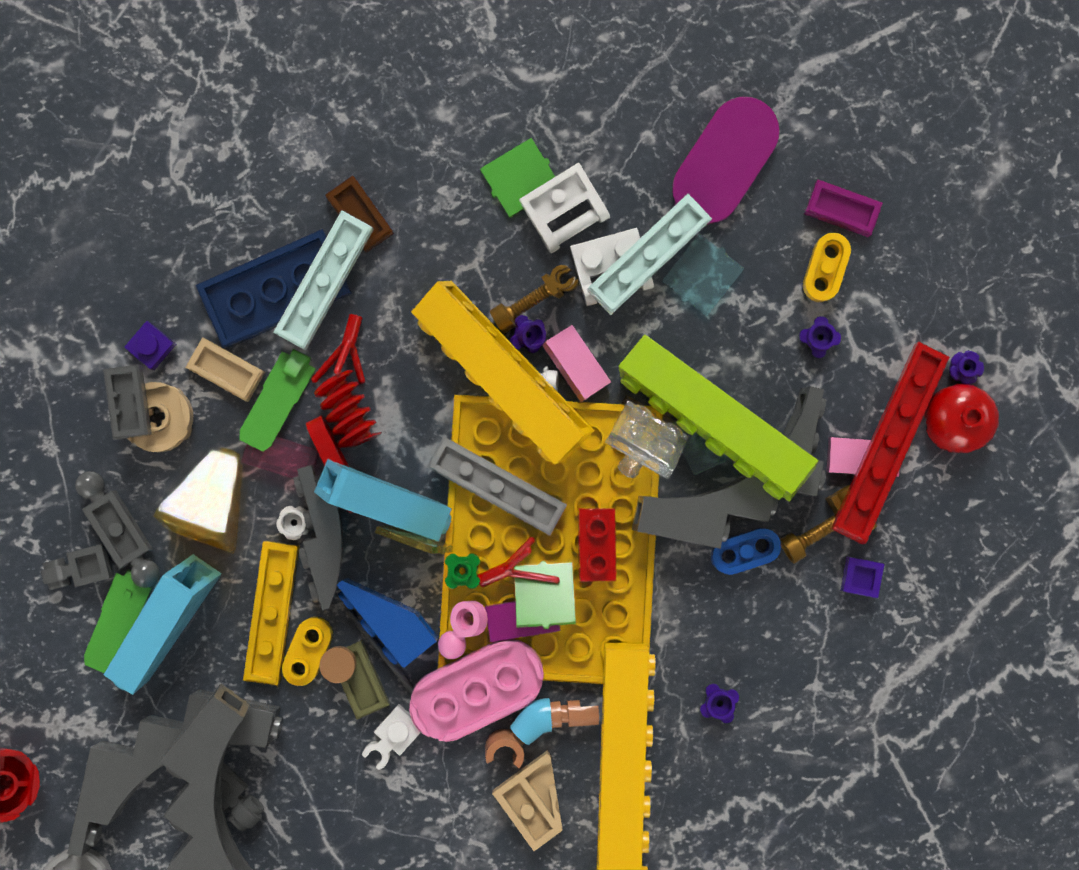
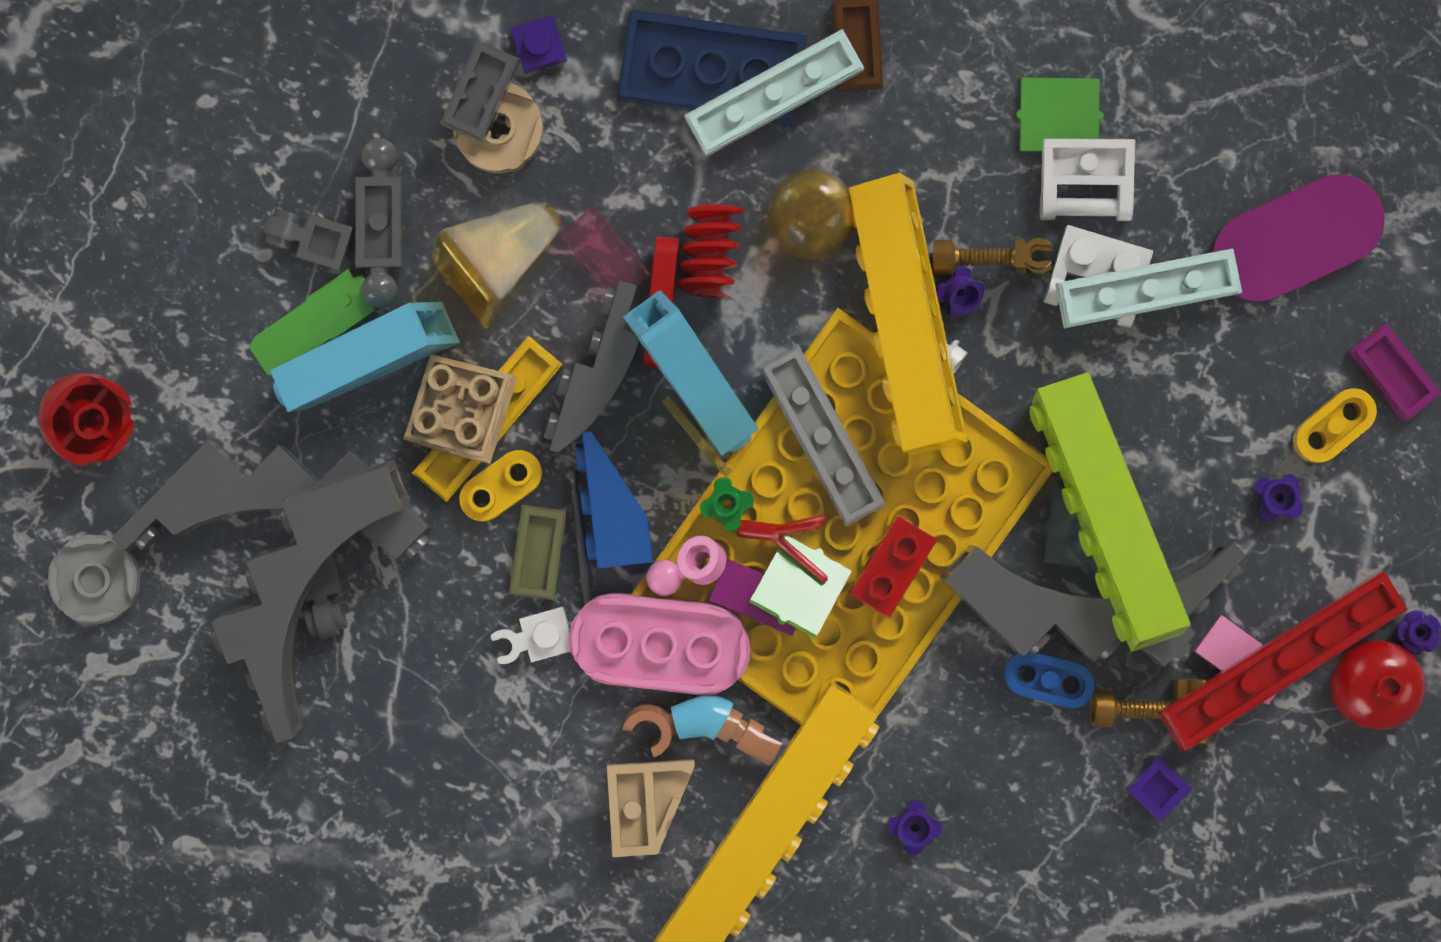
camera: 30 degrees right, 0 degrees up
(225, 369) = (604, 122): tan tile -> none
(247, 618) = (460, 408): none -> tan tile
(276, 400) = (640, 190): bright green piece -> none
(284, 523) = (563, 331): white plate -> none
(338, 664) = (527, 520): medium nougat tile -> none
(341, 353) = (752, 181): red plant -> none
(399, 344) = (811, 214): none -> clear yellow cylinder
(576, 363) = (992, 357): bright pink tile -> none
(646, 441) = (1016, 489): clear plate -> none
(703, 274) = (1193, 348): clear light blue piece -> none

